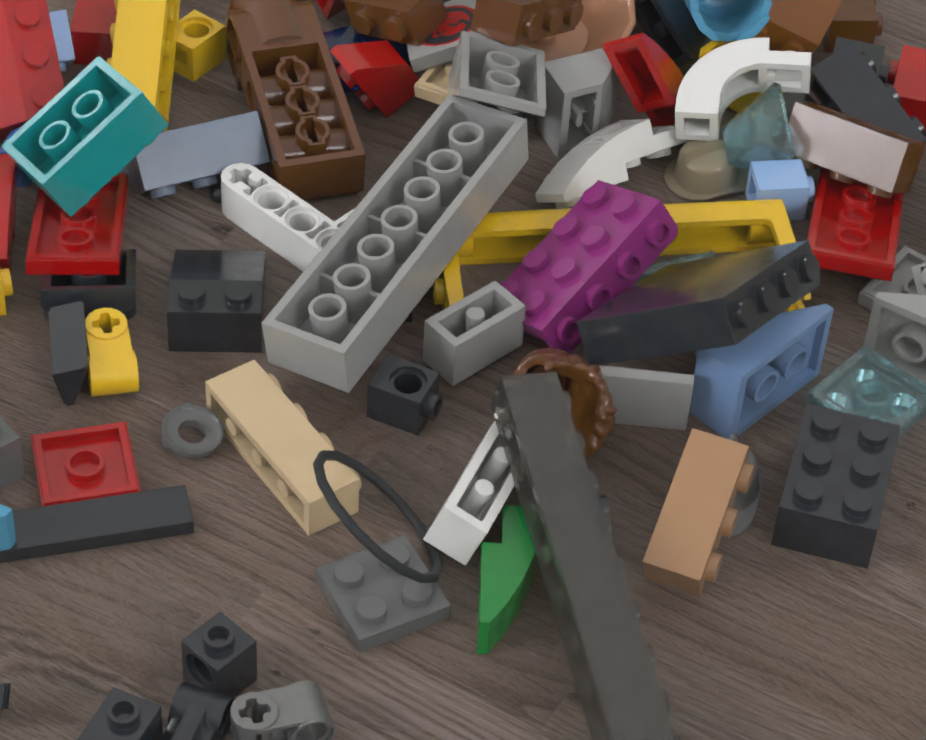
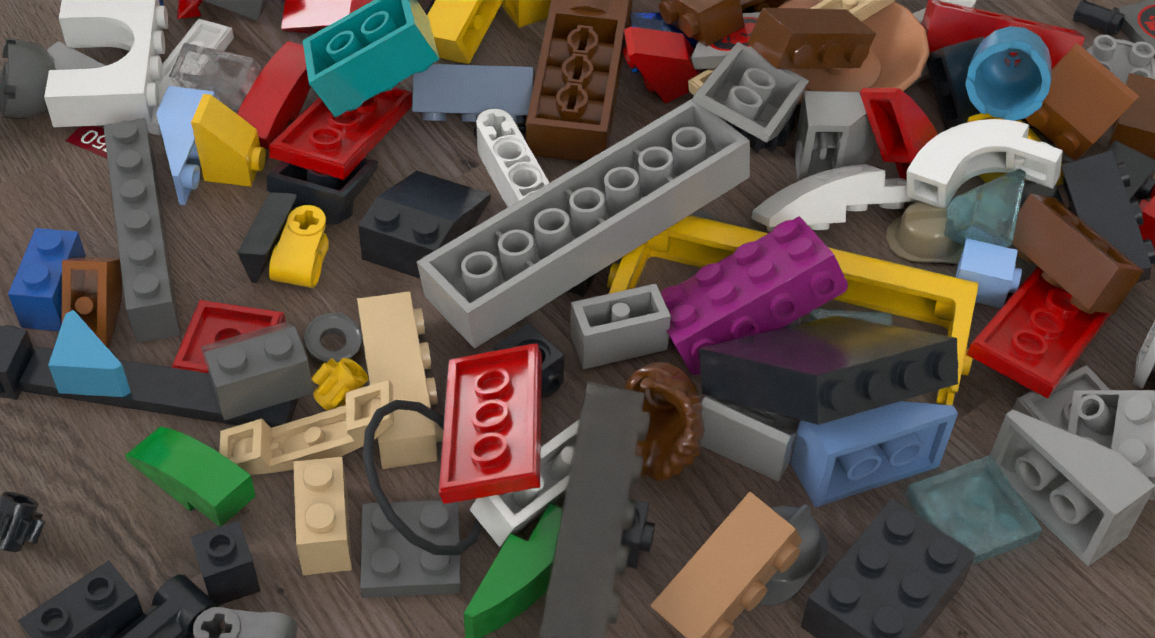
camera: 25 degrees right, 5 degrees up
(130, 593) = (193, 474): none -> green slope
(142, 475) = (258, 369): none -> dark grey slope
(232, 468) = (336, 380): none -> yellow gear
(233, 525) = (323, 435): none -> tan slope
(287, 588) = (322, 516): none -> tan brick
(416, 448) = (492, 424): none -> tile

